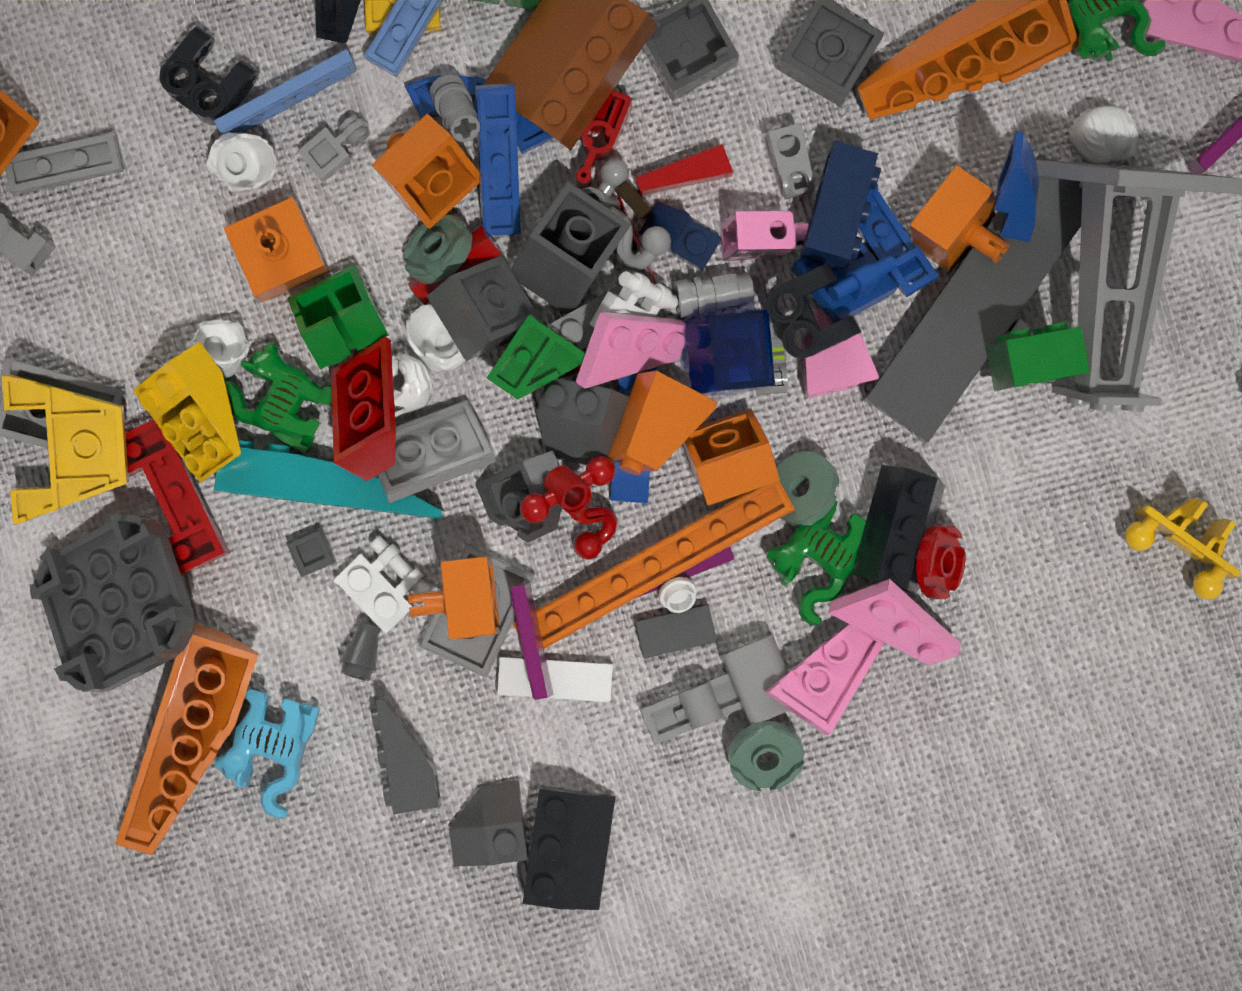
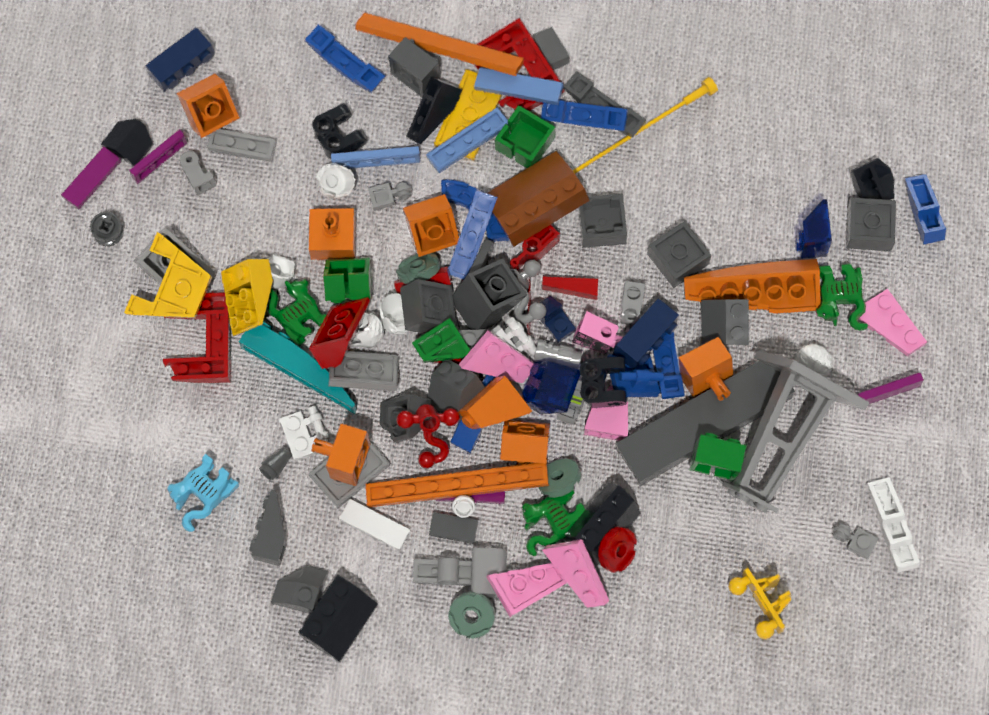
camera: 30 degrees right, 15 degrees down
(114, 603) = (156, 376): dark grey tile -> none
(189, 729) = (160, 463): orange wedge -> none
(311, 552) = (274, 399): dark grey tile -> none
(455, 107) = (461, 197): light grey axle -> none
(528, 173) = (483, 255): none -> dark grey tile
(531, 641) = (371, 494): magenta tile -> none
(634, 200) = (536, 288): dark brown tile -> none
(948, 130) = (725, 320): none -> dark grey slope
(1018, 190) = (745, 362): blue slope -> none

